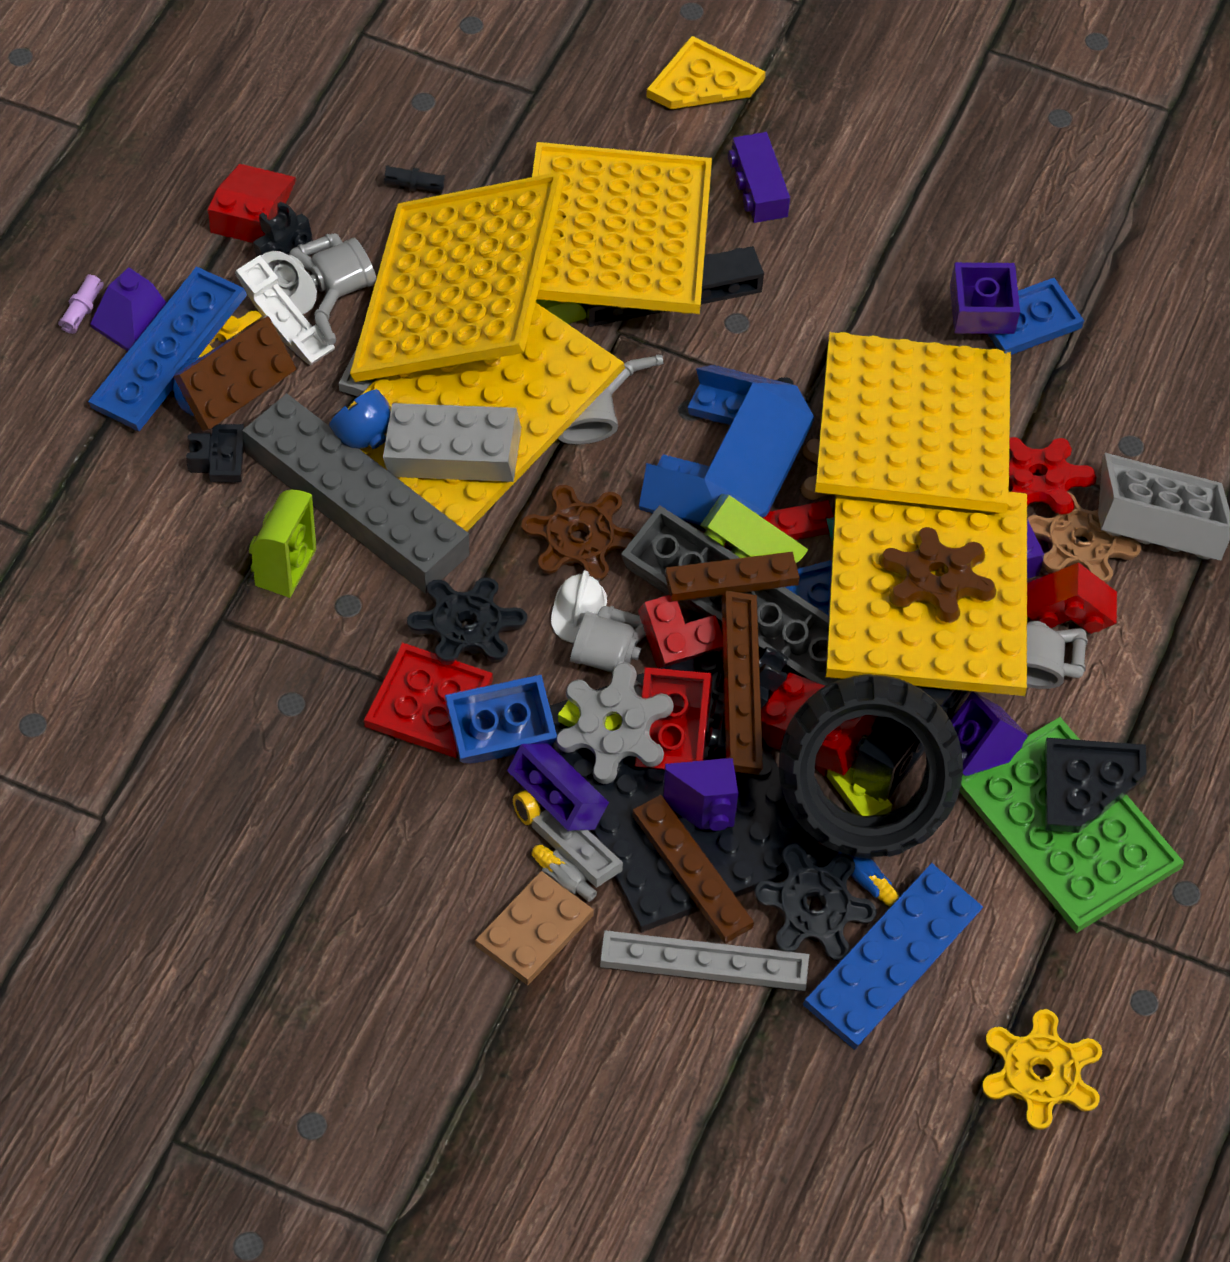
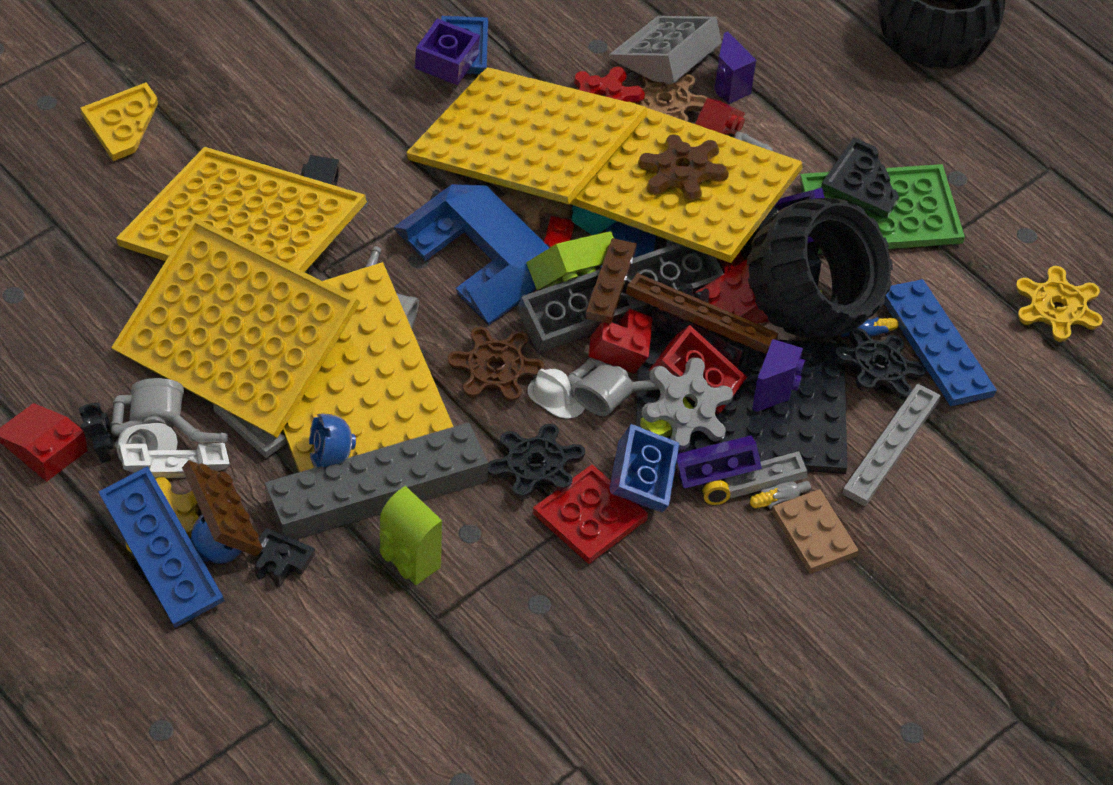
camera: 65 degrees left, 5 degrees down
(80, 304) = (66, 593): lavender pin -> none
(127, 309) = (101, 561): dark purple slope -> none
(414, 179) = (94, 328): black pin -> none
(452, 442) = (389, 392): light grey brick -> none
(693, 869) = (821, 416): reddish brown plate -> none
(759, 177) = (241, 128): dark purple brick -> none
(1168, 581) = (734, 70): none -> dark purple slope

